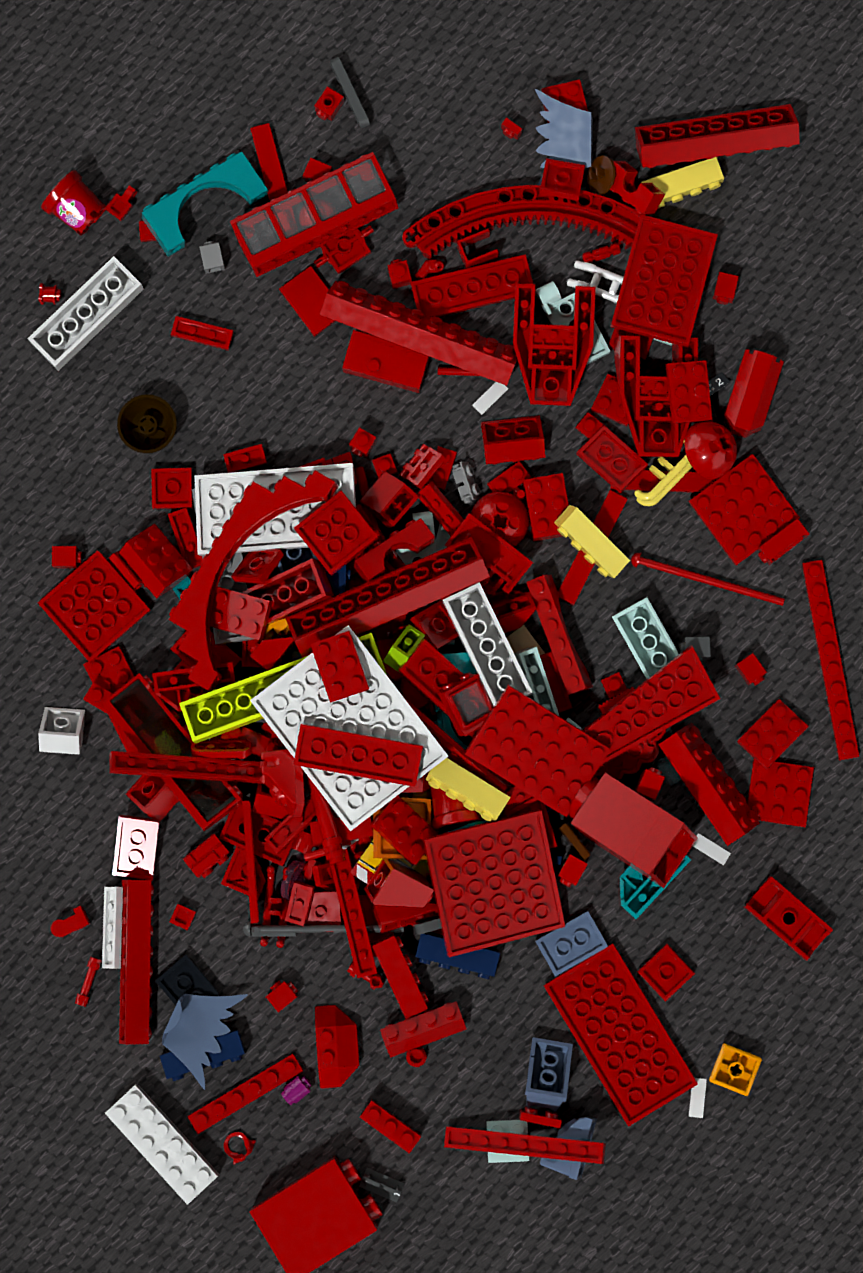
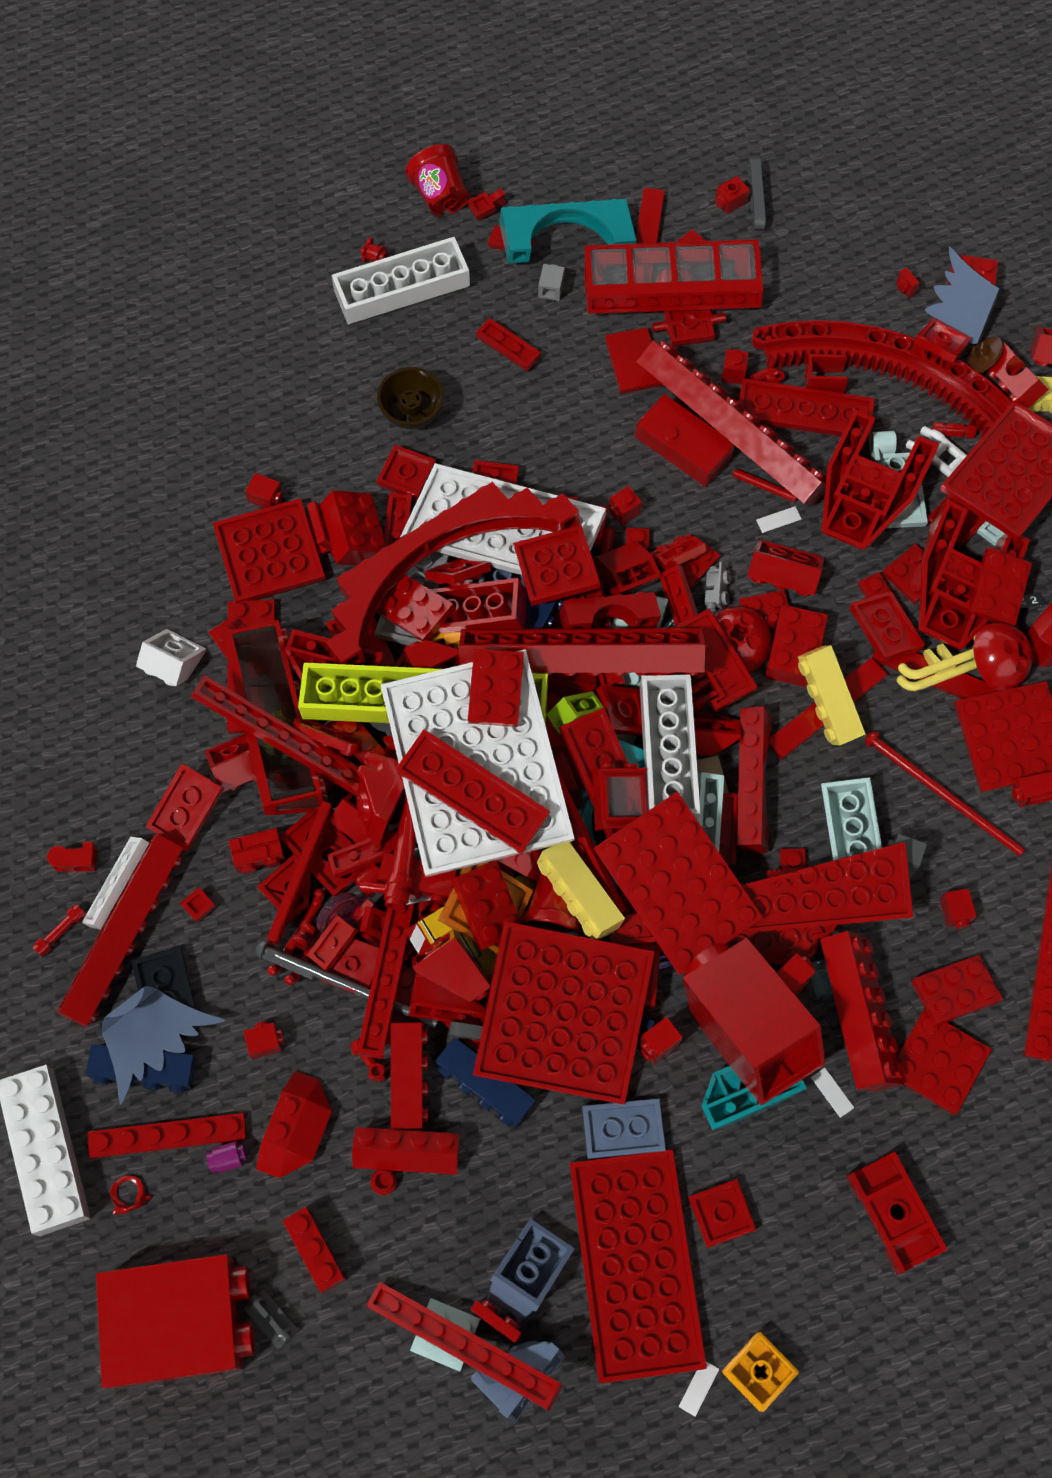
camera: 20 degrees right, 15 degrees down
(574, 841) = (676, 1007): reddish brown tile -> none

